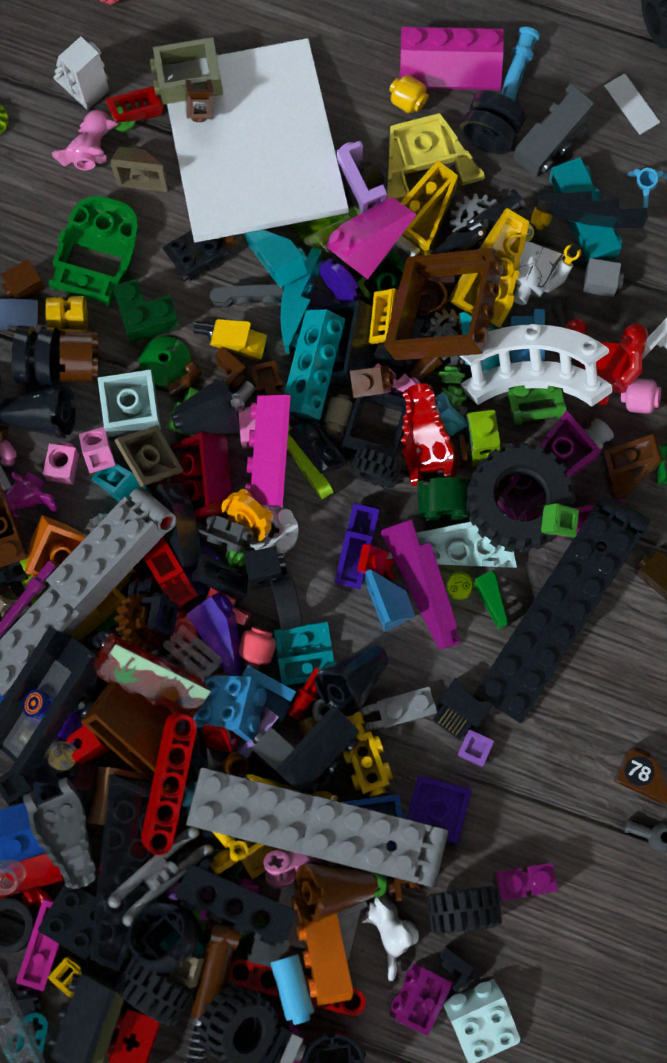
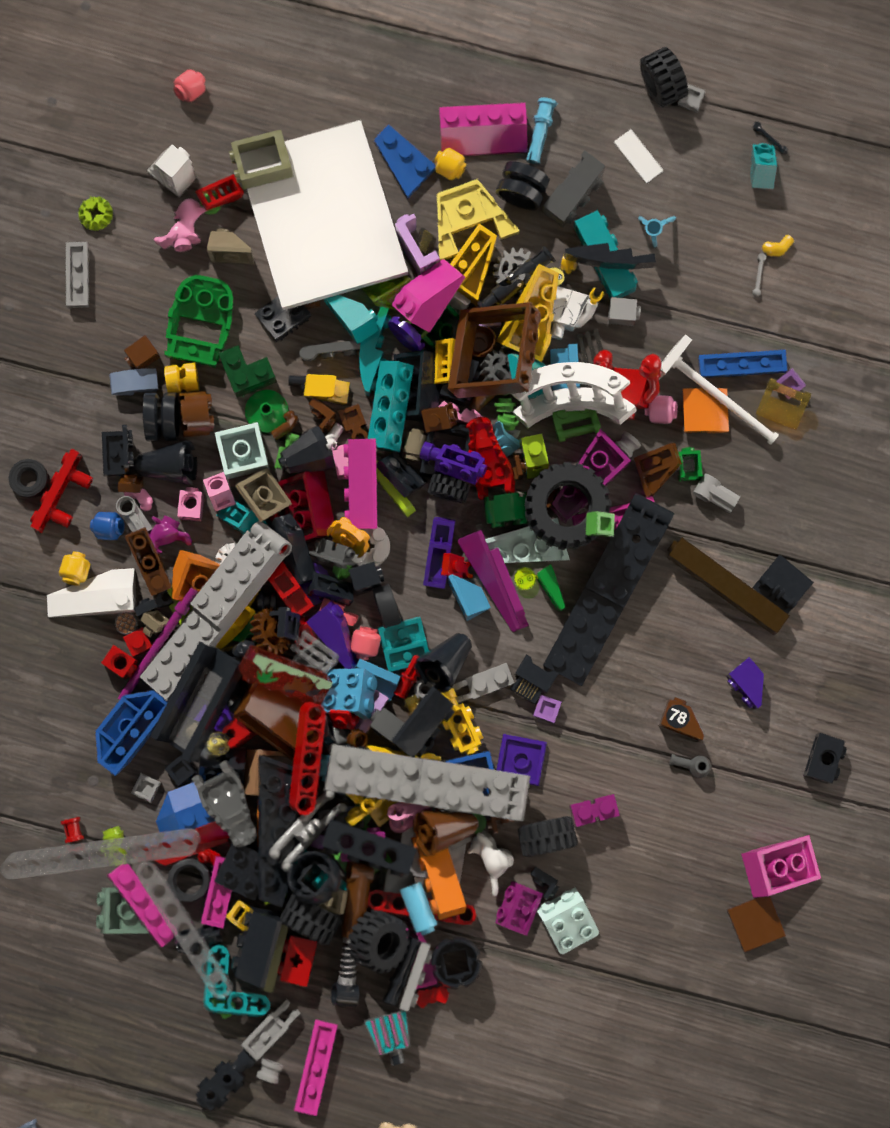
camera: 10 degrees left, 5 degrees up
(36, 704) = (194, 704): clear blue tile -> none
(199, 102) = (275, 190): reddish brown window -> none
(357, 89) = (405, 161): none -> blue wing
(387, 438) = (455, 462): none -> dark purple brick

